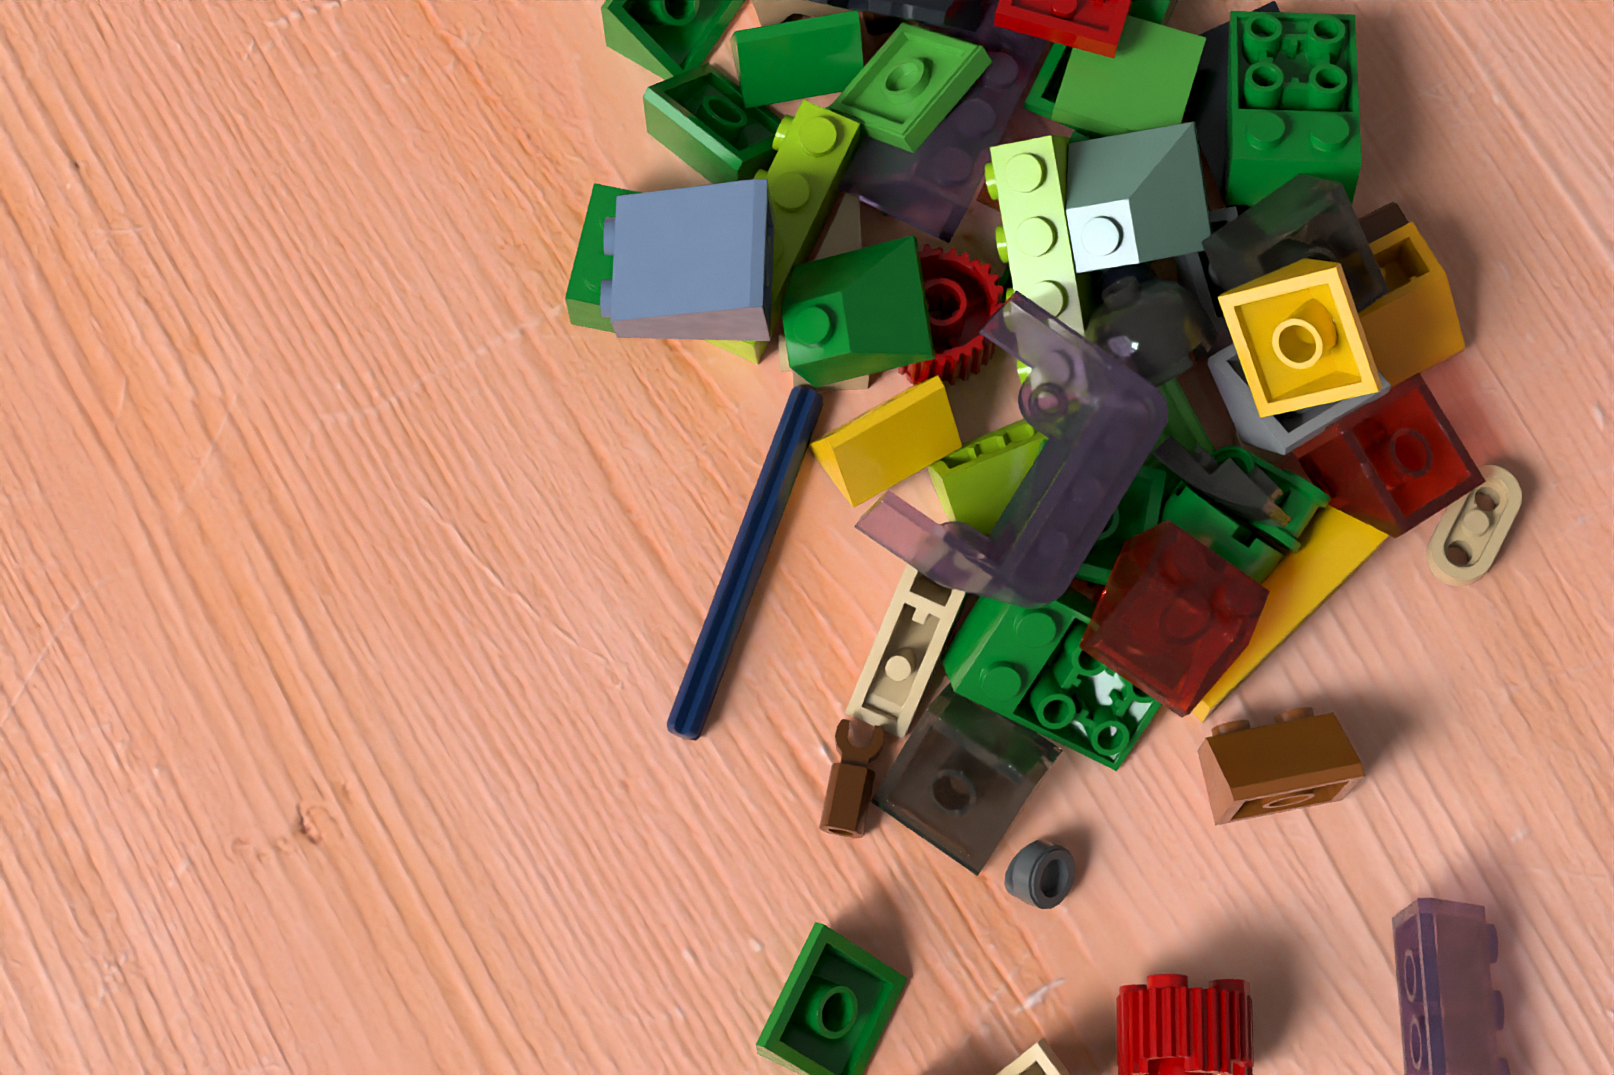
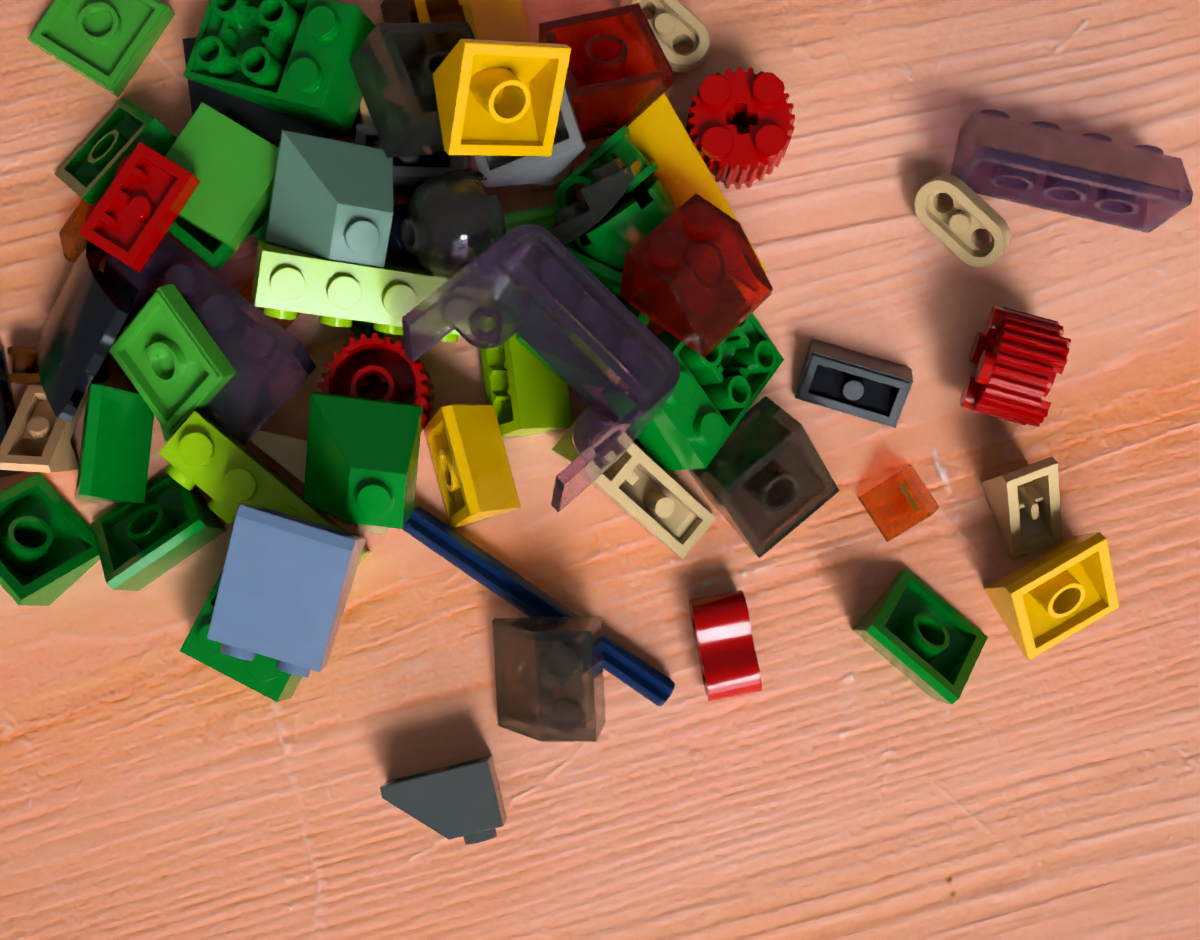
camera: 75 degrees left, 10 degrees up
(503, 523) = (452, 799): none -> dark grey slope
(669, 592) = (550, 677): none -> clear smoke slope
(756, 781) = (725, 645): none -> red axle
(850, 784) = (744, 570): reddish brown bar -> none
(984, 951) = (899, 503): none -> clear orange slope
(1041, 874) = (853, 442): dark grey tile -> none
(1113, 860) = (854, 383): none -> black slope
(1277, 765) = (822, 232): dark orange slope -> none
(1349, 936) = (959, 224): none -> tan plate
(1399, 612) = (746, 101): none -> red brick

